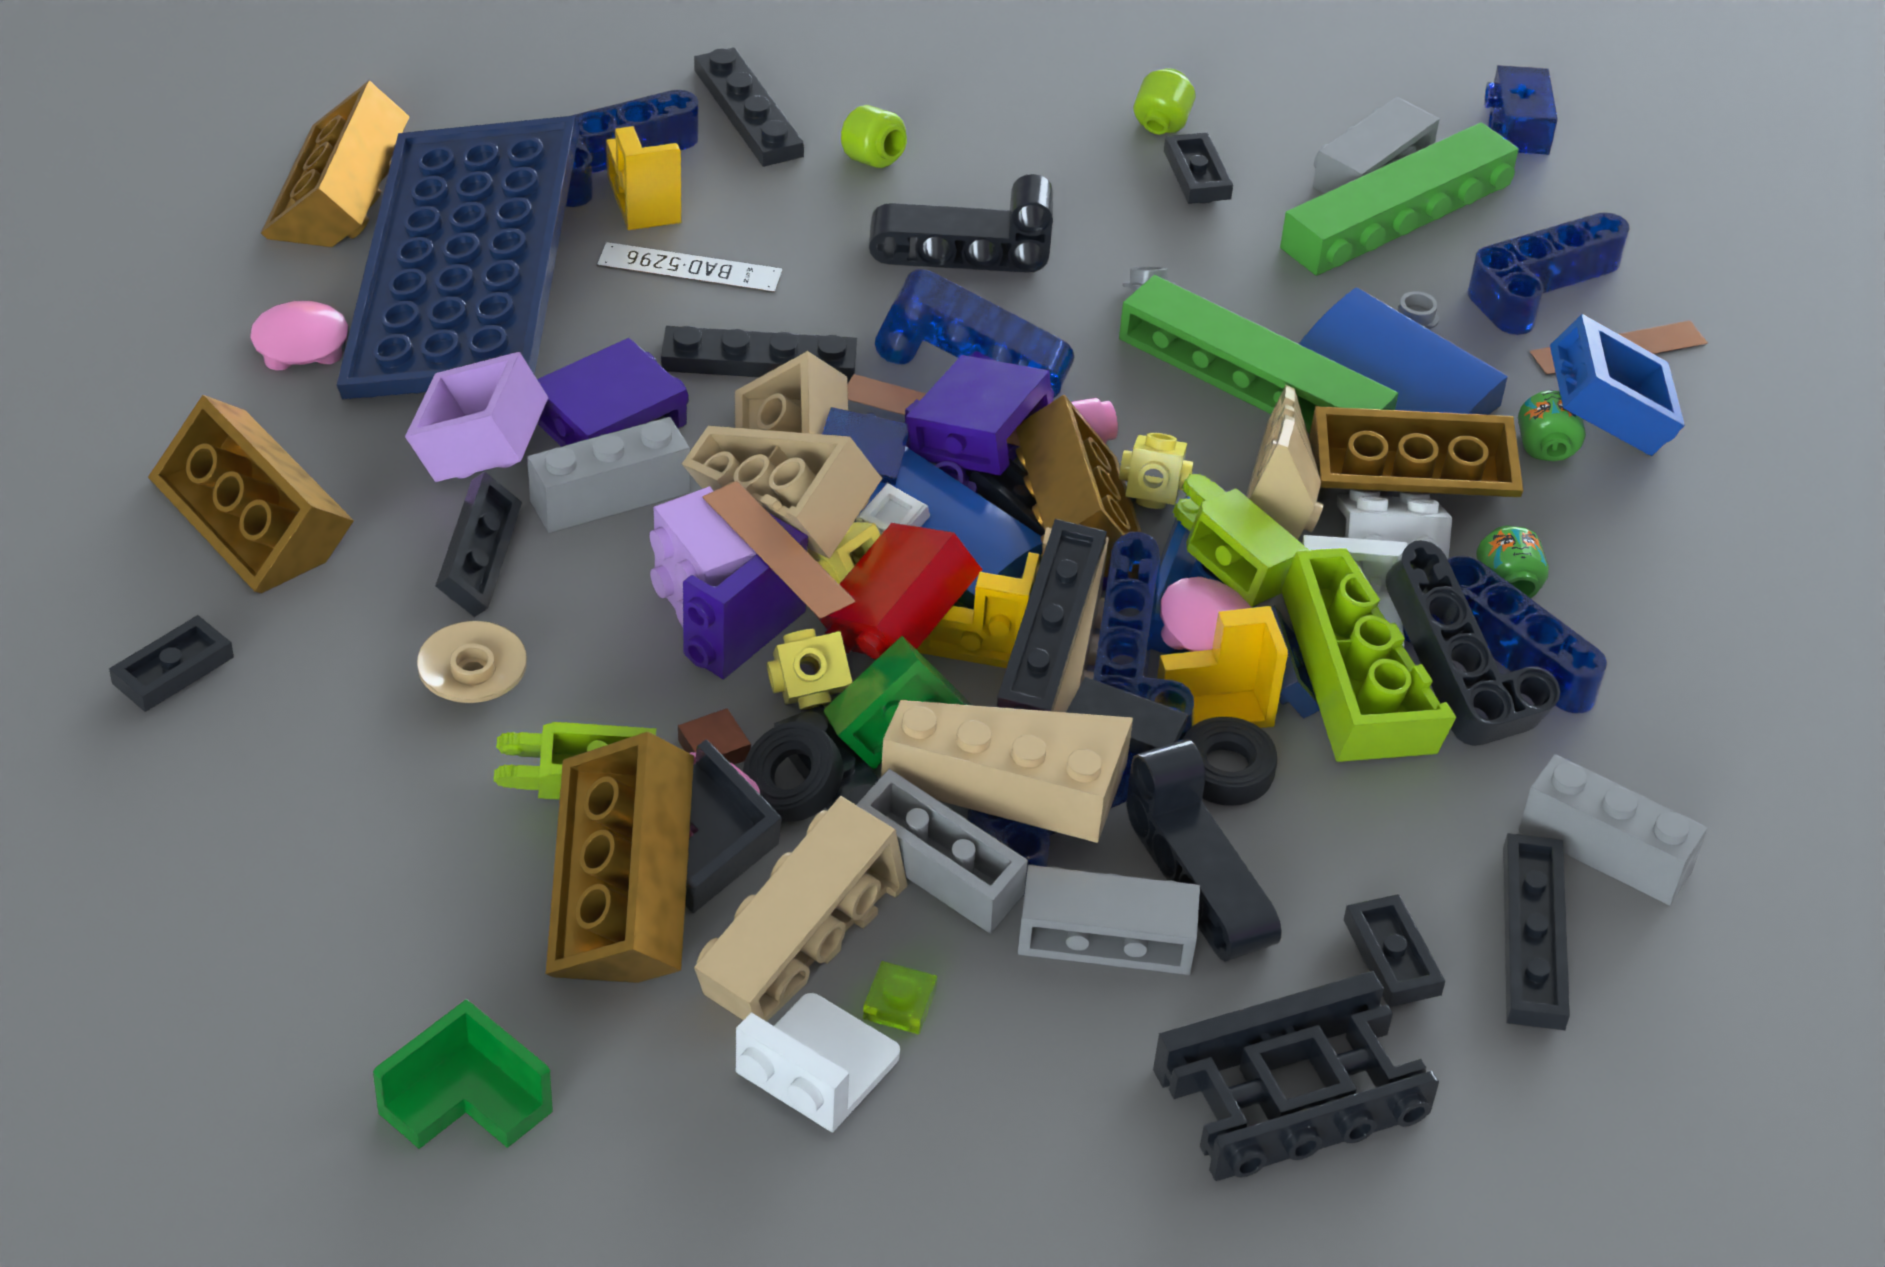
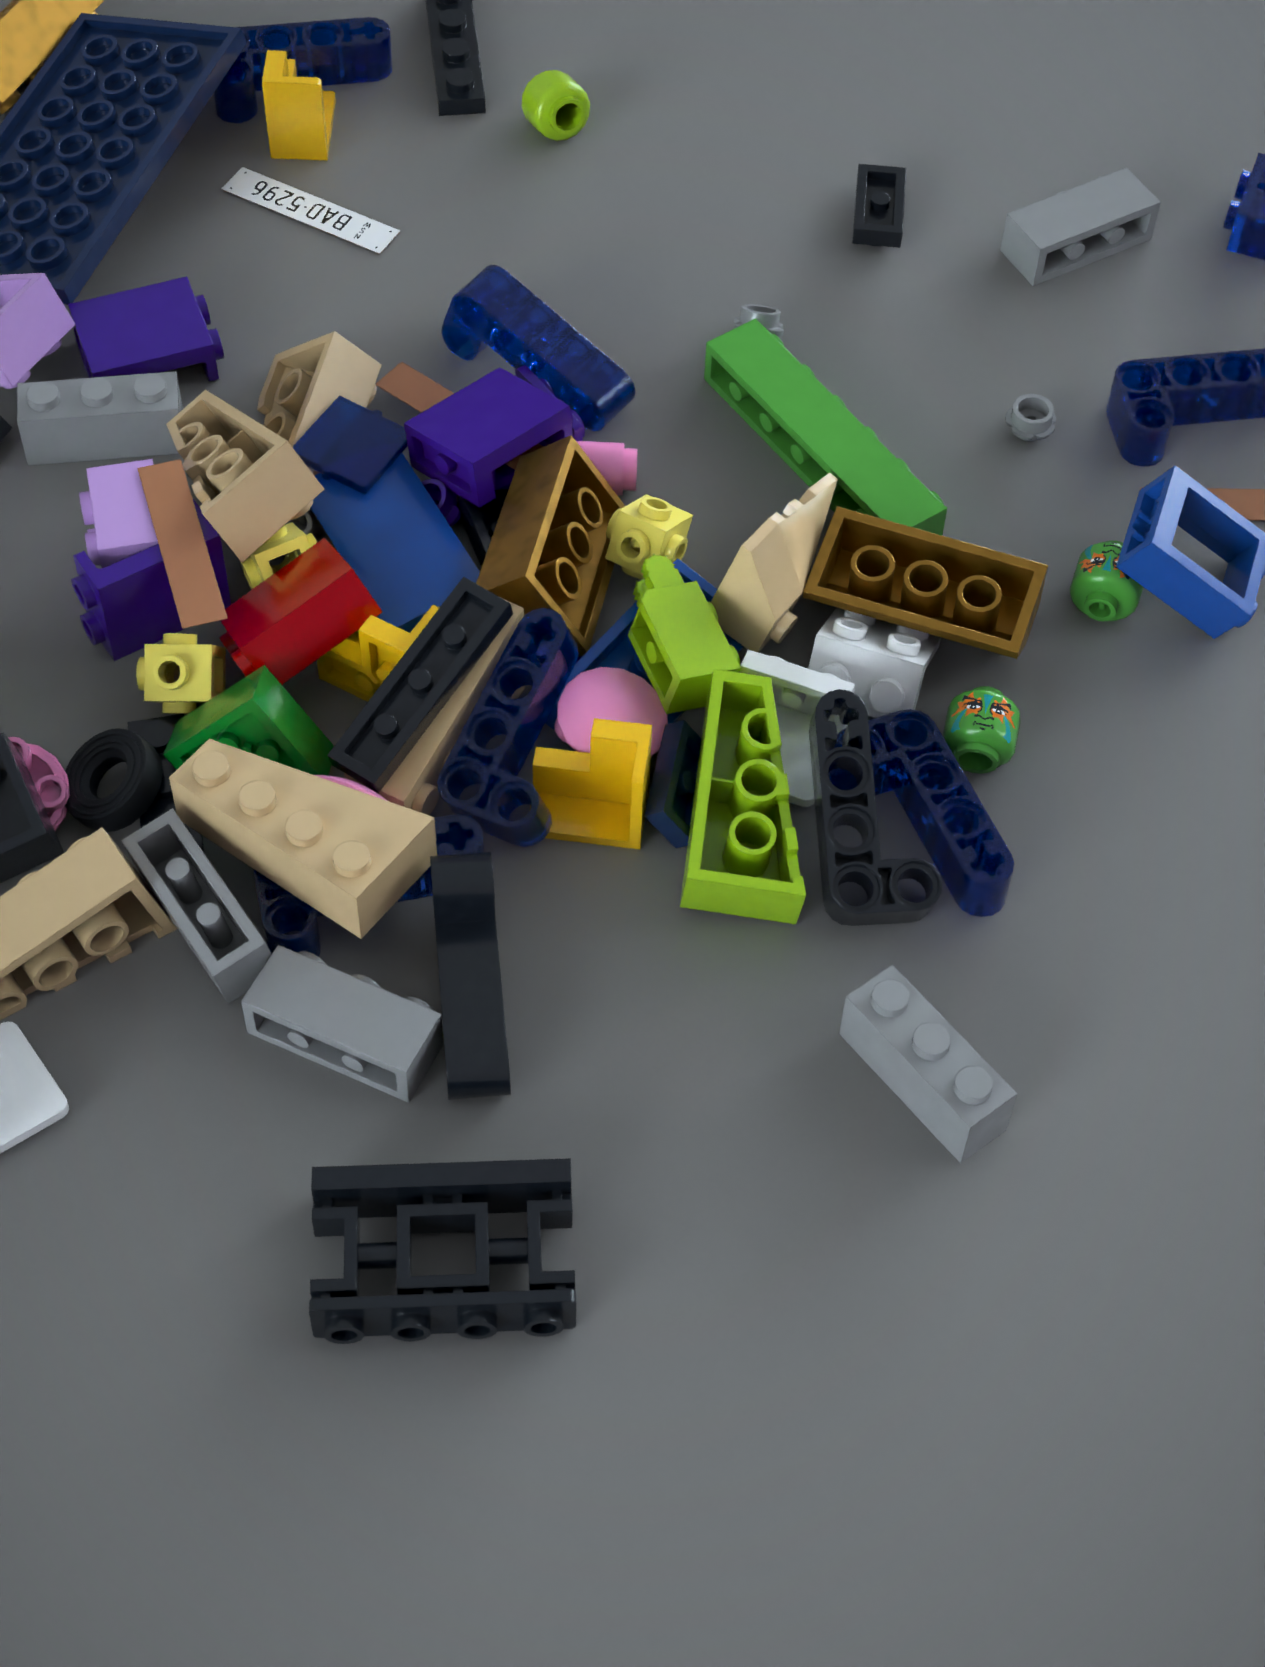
camera: 20 degrees right, 10 degrees up
(720, 731) = (63, 724): copper tile -> none
(749, 352) = (313, 313): black plate -> none
(894, 507) = (345, 527): white tile -> none
(900, 997) = (101, 1049): clear neon green plate -> none
(969, 236) = (597, 236): black beam -> none
(1152, 722) = (462, 814): black tile -> none
(1164, 101) = (879, 124): lime head -> none
(1241, 737) = (564, 909): black tyre -> none
(1394, 950) = (623, 1137): black plate -> none
(1398, 198) = (1078, 283): bright green brick -> none
(1405, 358) = (983, 474): blue slope -> none
(1535, 932) = (785, 1157): black plate -> none

